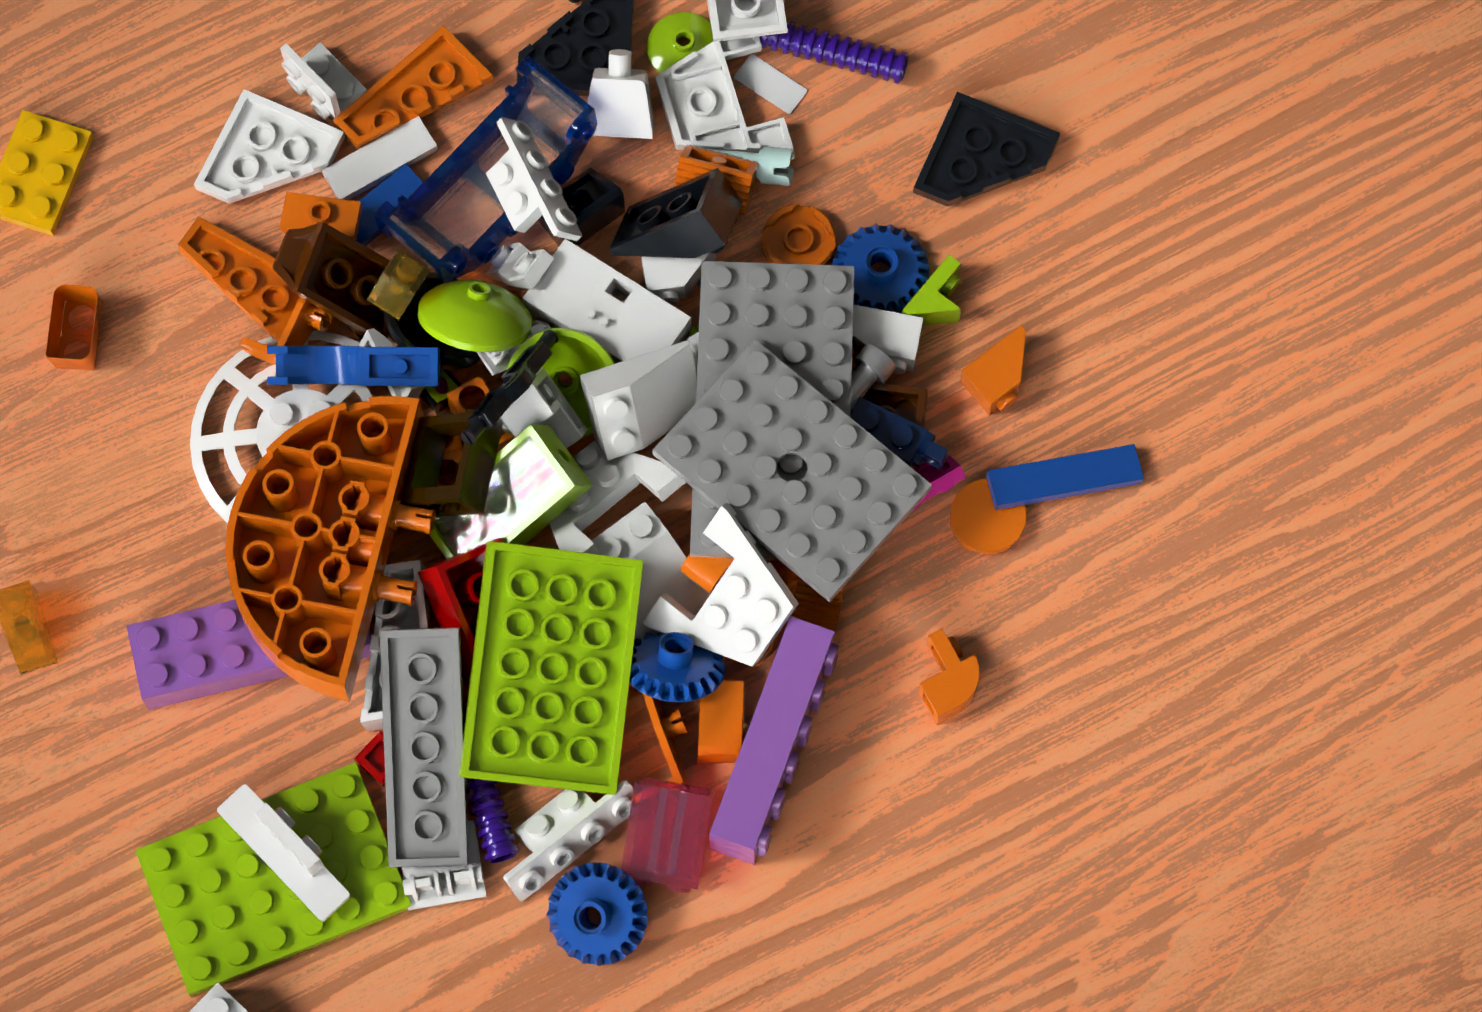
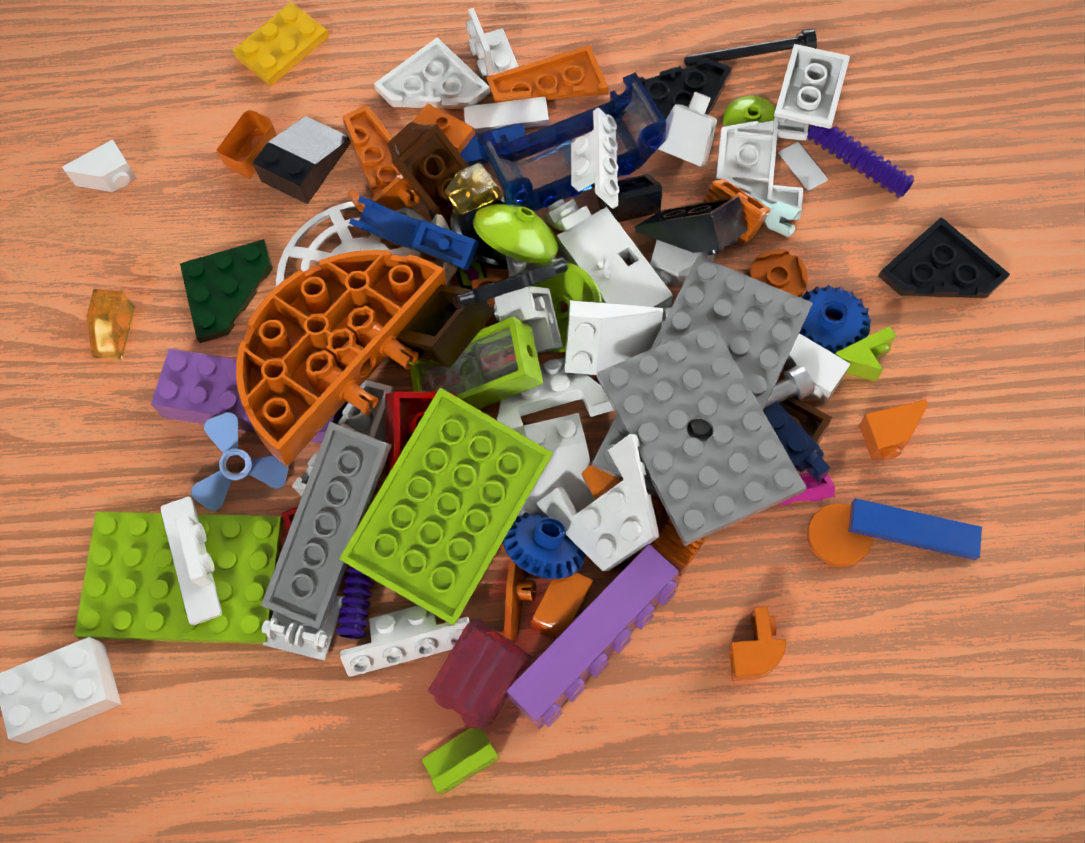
camera: 30 degrees right, 5 degrees down
(138, 521) = (223, 286): none -> dark green plate
(151, 317) = (301, 158): none -> black slope
(248, 697) = (213, 489): none -> light blue piece
(619, 903) = (414, 709): blue gear -> none
(685, 932) = (459, 759): none -> lime panel

